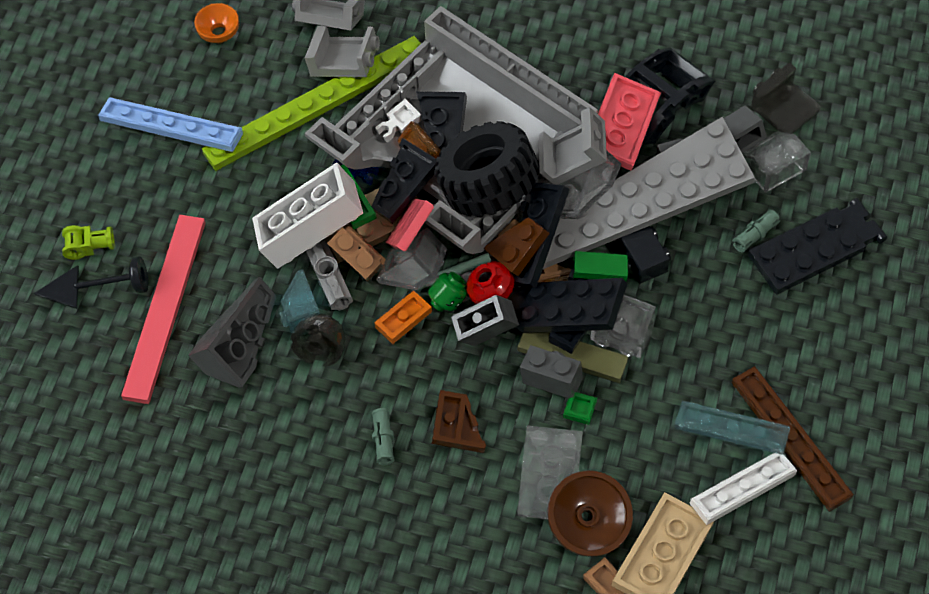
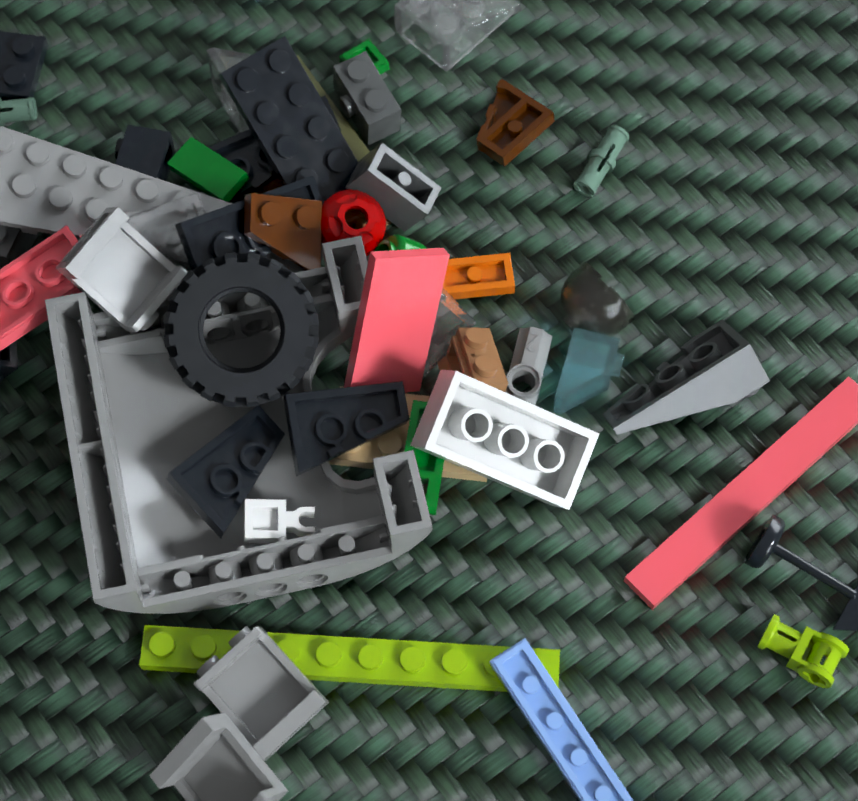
camera: 145 degrees left, 5 degrees up
(417, 136) = (277, 468): clear orange tile -> none

